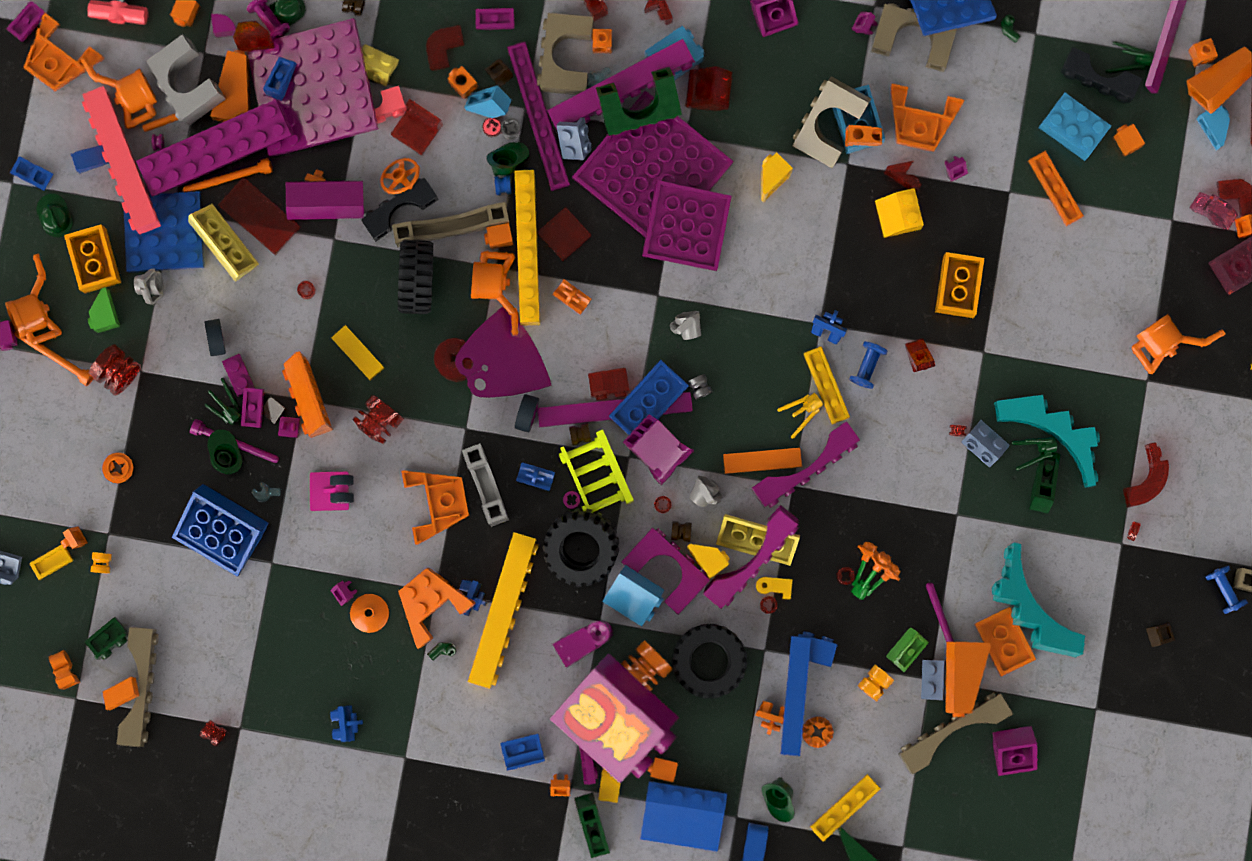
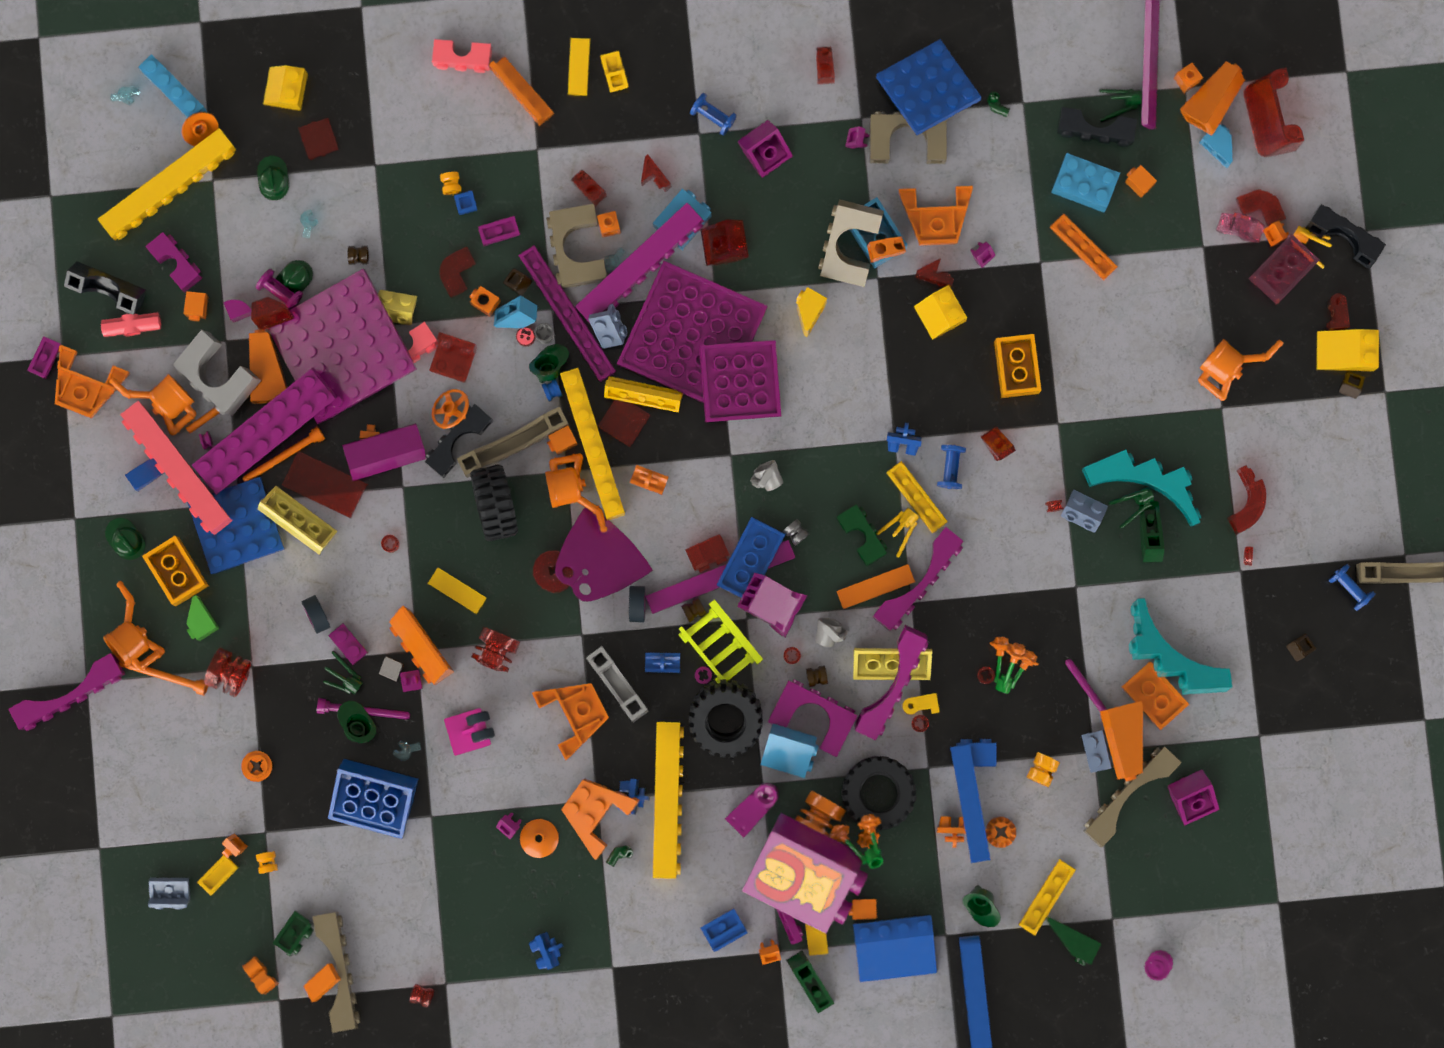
camera: 15 degrees left, 0 degrees up
(31, 173) = (91, 504): blue slope -> none
(149, 284) = (238, 580): light grey piece -> none
(252, 407) = (370, 671): magenta plate -> none
(279, 78) = (307, 346): blue slope -> none
(589, 213) = (643, 394): none -> yellow fence
(663, 106) = (686, 272): dark green arch -> none
(684, 702) = (867, 838): none -> orange plant
(709, 558) = (851, 695): yellow slope -> none
(760, 390) = (855, 520): none -> dark green arch
(907, 649) = (1064, 729): bright green slope -> none

